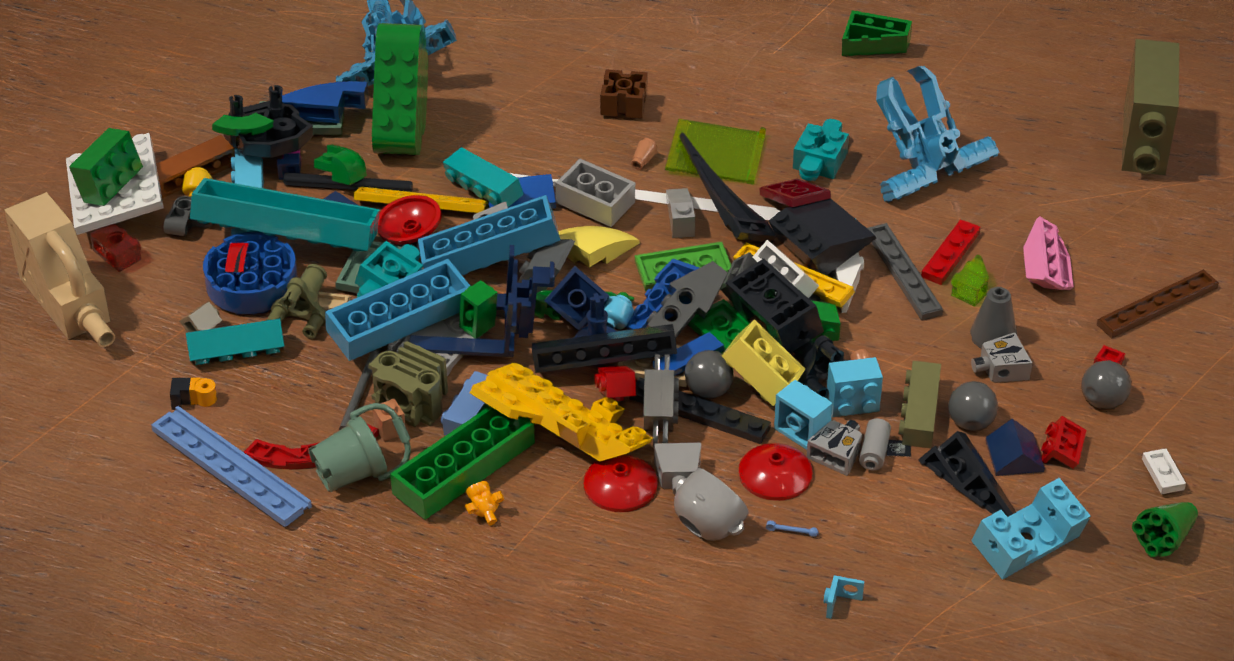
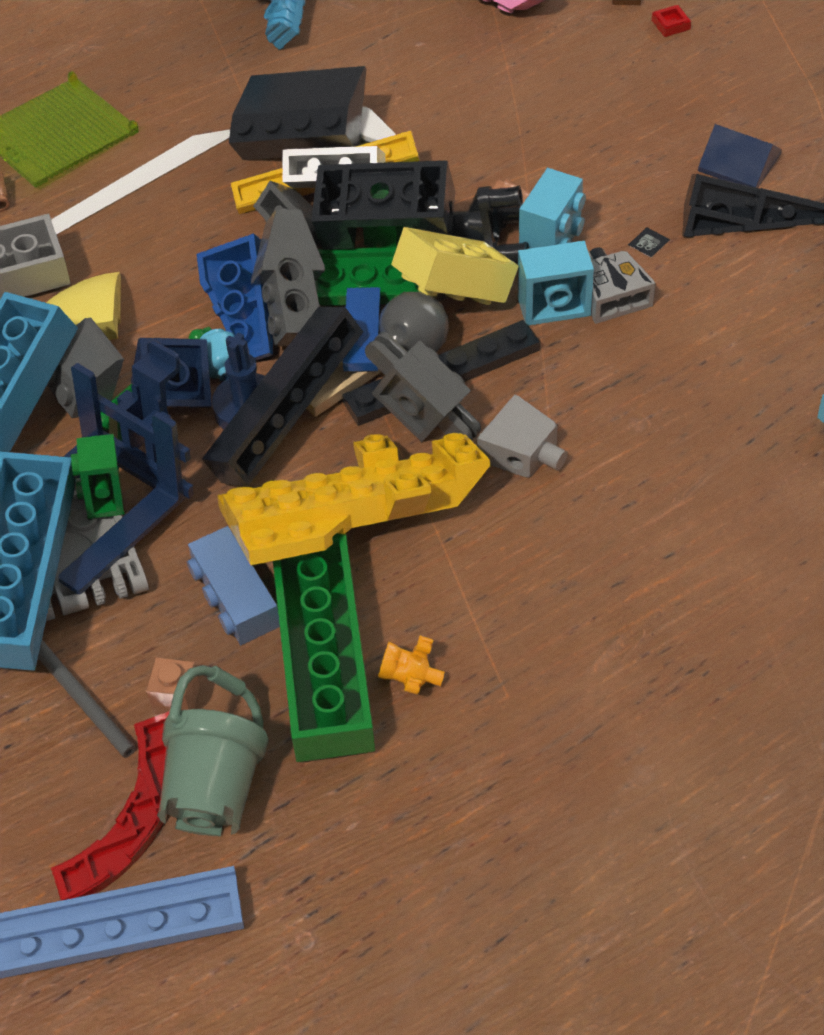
camera: 50 degrees left, 10 degrees up
(413, 379) = (141, 619): olive piece -> none
(616, 382) = (344, 415): red brick -> none
(620, 483) = (493, 524): red dish -> none
(652, 263) = (177, 276): bright green tile -> none
(681, 213) = (120, 208): light grey slope -> none
(709, 506) = (621, 443): light grey piece -> none
(734, 212) = (183, 167): black plate -> none
(771, 526) = (717, 381): medium blue hinge -> none
(775, 471) = (595, 361): red dish -> none
(795, 192) = (207, 99): dark red tile -> none
(821, 150) = (161, 48): teal brick -> none
(875, 444) = (644, 252): light grey brick -> none
(905, 273) = (422, 95): dark grey tile -> none
(920, 405) = (616, 184): olive brick -> none
(950, 252) = (409, 43): red plate -> none
(971, 282) = (474, 49): clear neon green slope -> none
(973, 406) = (659, 145): dark grey piece -> none
(994, 317) = (555, 61): dark grey cone -> none
(1003, 359) = (609, 88): light grey torso -> none
(1063, 442) = (761, 114): red bracket -> none
(1106, 384) = (719, 37): dark grey piece -> none

